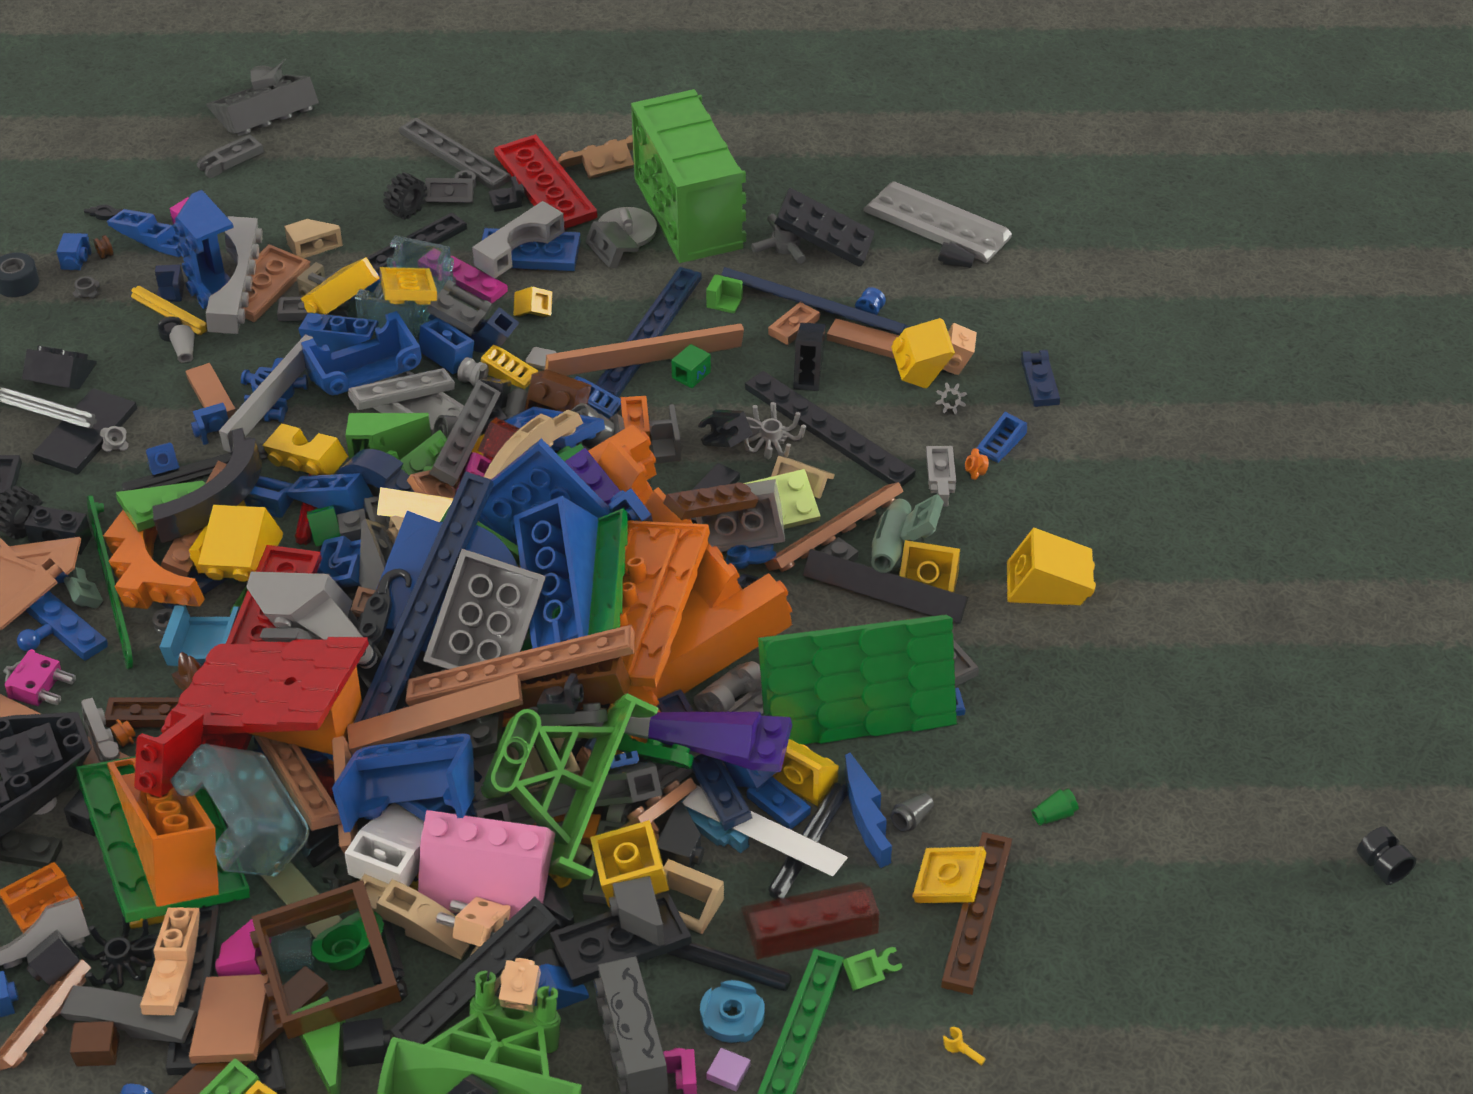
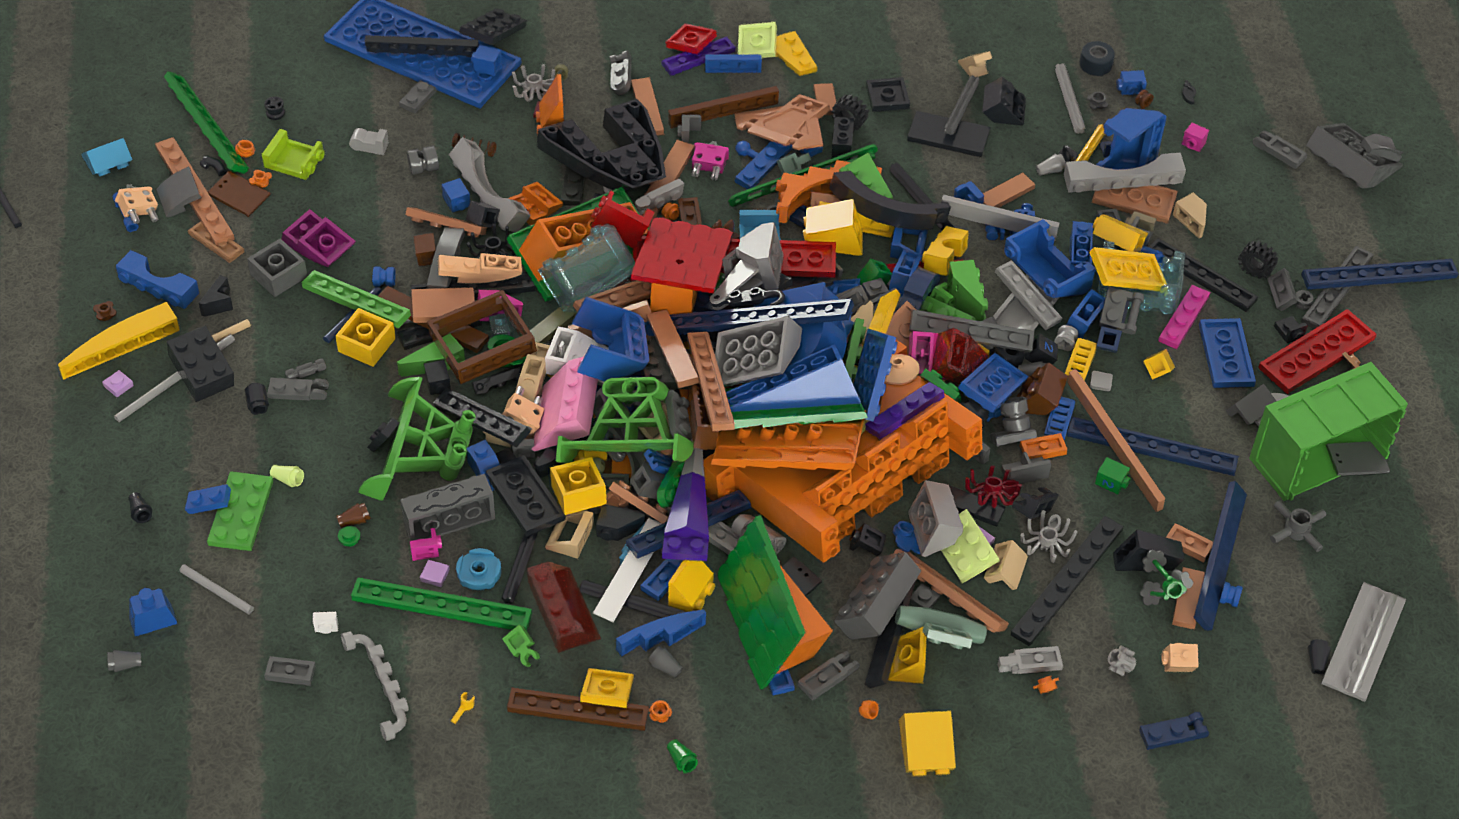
camera: 80 degrees right, 5 degrees up
(76, 311) = (1070, 99): none -> light grey axle
(114, 432) = (938, 146): light grey plate -> none
(146, 230) = (1175, 117): blue slope -> none
(161, 458) = (920, 176): blue bracket -> none
(448, 118) = (1379, 274): none -> dark blue tile
(519, 984) = (463, 431): light nougat head -> none
(529, 434) = (939, 355): tan slope -> none
(537, 224) = (1201, 325): light grey arch -> none
(561, 700) = (681, 406): black bracket -> none
(636, 509) = (876, 423): blue bracket -> none
(638, 909) = (538, 495): dark grey slope -> none
(693, 464) = (994, 487): none -> dark red animal
(711, 500) = (903, 475): reddish brown plate -> none
(724, 294) = (1209, 489): bright green panel -> none
(824, 227) = (1312, 548): black plate -> none
(846, 580) = (877, 596): none -> dark grey brick
(856, 333) = (1172, 586): none -> dark grey plant
(922, 352) = (1164, 629): yellow slope -> none
(986, 818) = (657, 707): none -> orange plate
(997, 621) = (869, 709): none -> orange hinge
(1007, 421) = (1100, 717): blue slope -> none

